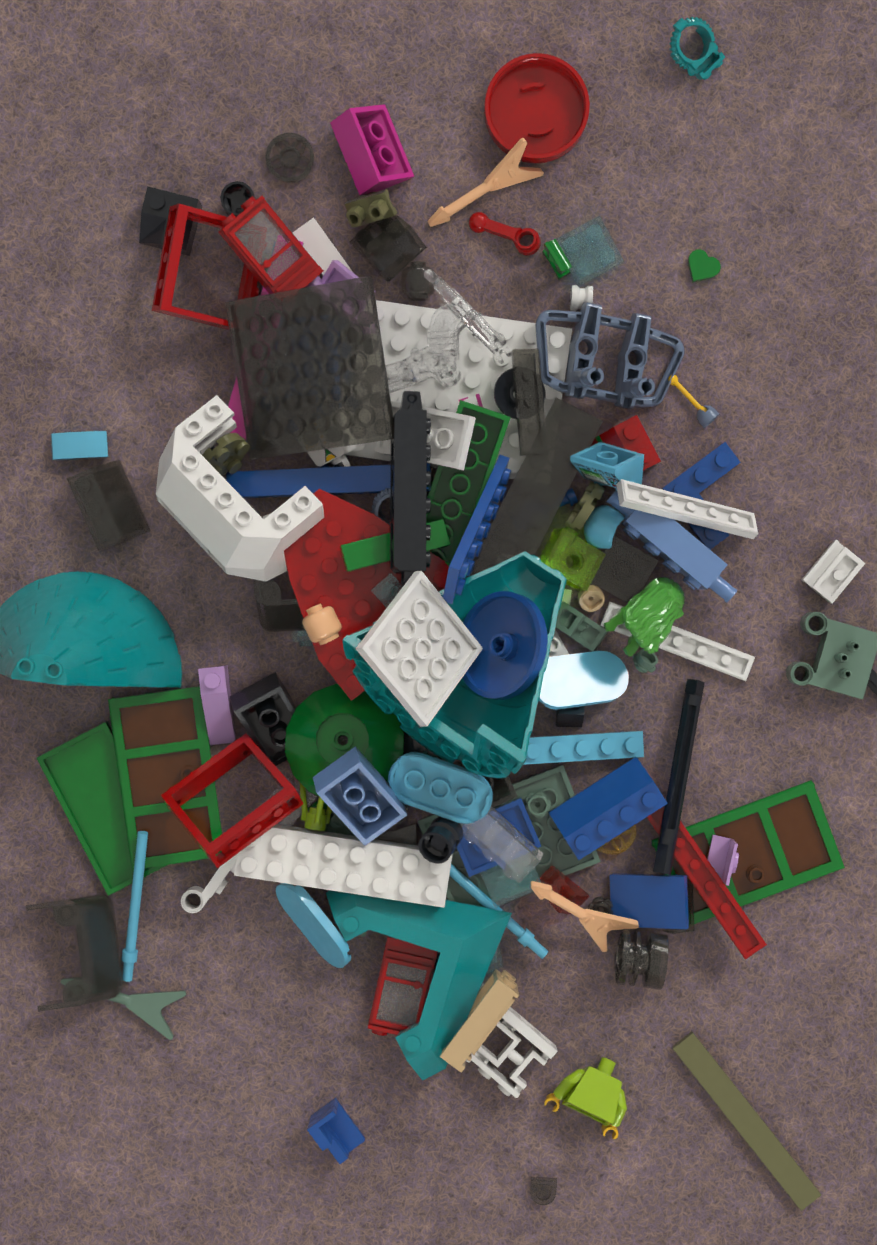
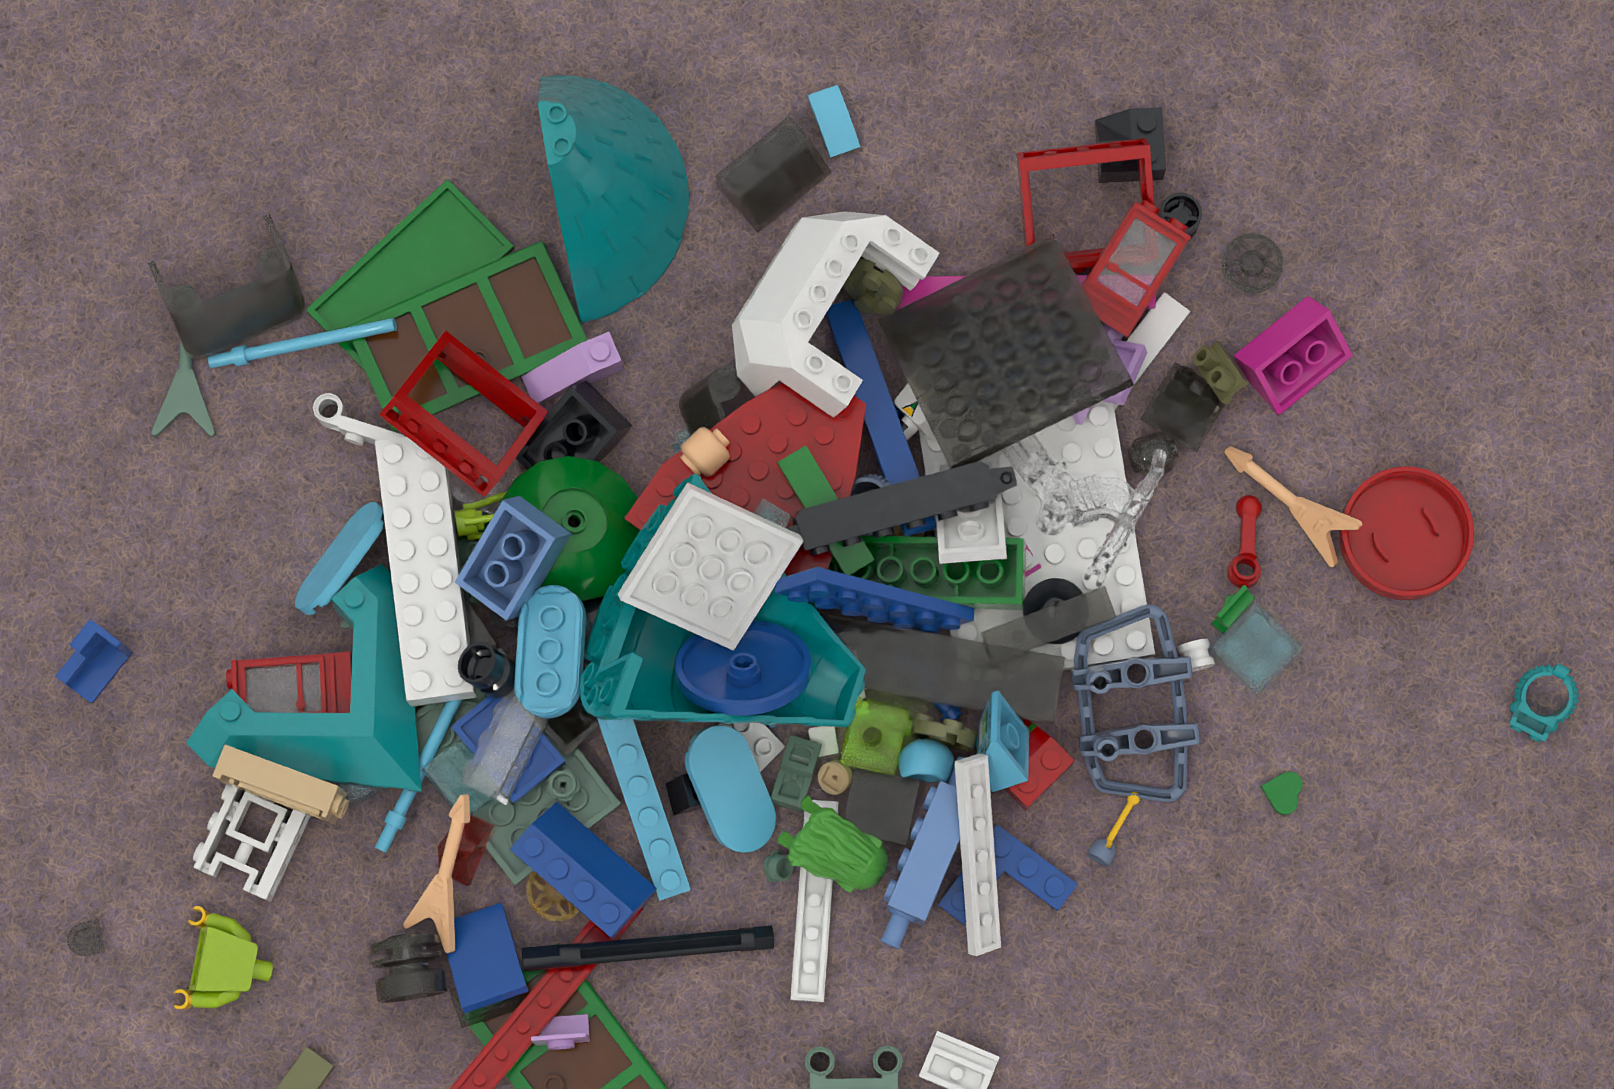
camera: 80 degrees right, 10 degrees down
(601, 902) = (464, 901): clear smoke plate -> none

